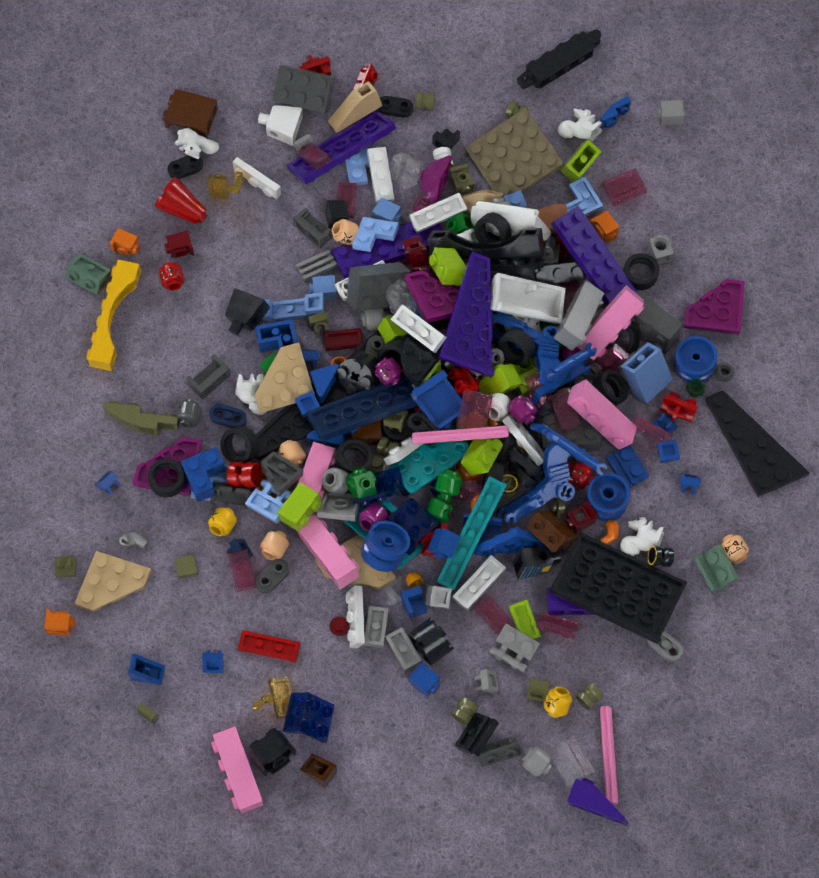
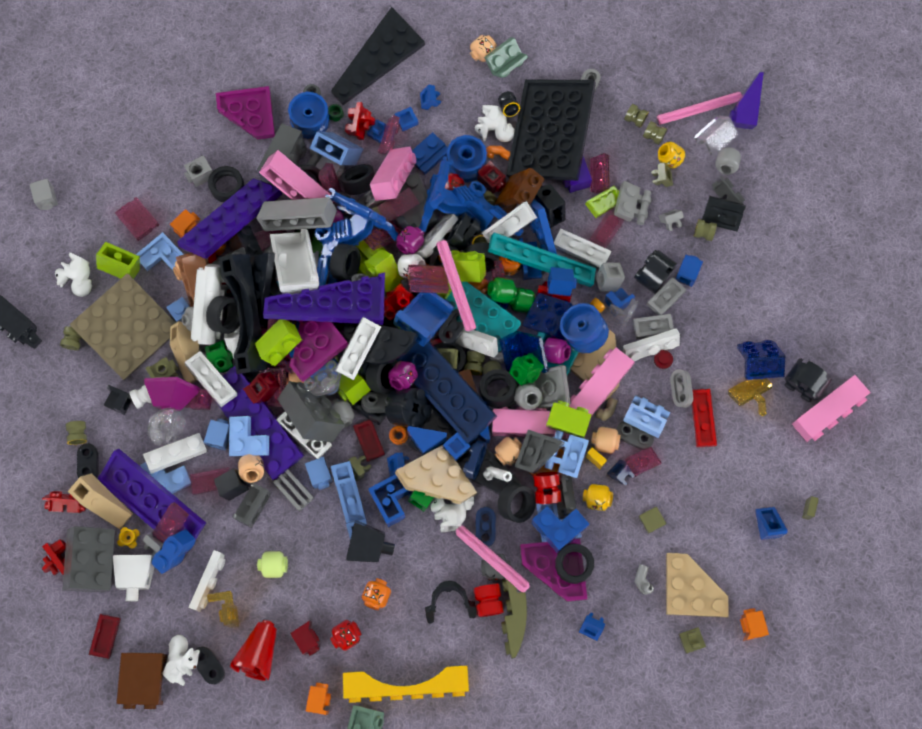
camera: 105 degrees left, 5 degrees up
(162, 399) = (488, 600): none -> red wheel
(169, 350) = (448, 586): none -> black helmet
(193, 406) = (493, 559): none -> bright pink axle
(198, 308) = (376, 594): none -> orange head
(209, 378) = (448, 560): dark grey panel -> none
(212, 662) = (739, 461): blue tile -> none
(237, 94) = (104, 636): none -> dark red tile
(253, 232) = (272, 564): none -> yellowish green head
(259, 530) = (596, 458): none -> yellow tile
(274, 430) = (497, 473): none -> white arm
(282, 585) = (644, 419): none -> light blue plate
(289, 154) = (173, 551): none -> blue brick
(290, 419) = (477, 455): none -> dark blue plate
(302, 558) = (609, 410): none -> dark tan arm
(303, 632) = (681, 389): none -> light grey plate
(316, 121) = (124, 533): none -> yellow plate
(319, 770) = (804, 336): reddish brown slope -> none
(513, 505) = (511, 222): none -> white plate
(615, 683) = (636, 115): none -> olive wheel
(620, 108) = (54, 245): blue slope -> none

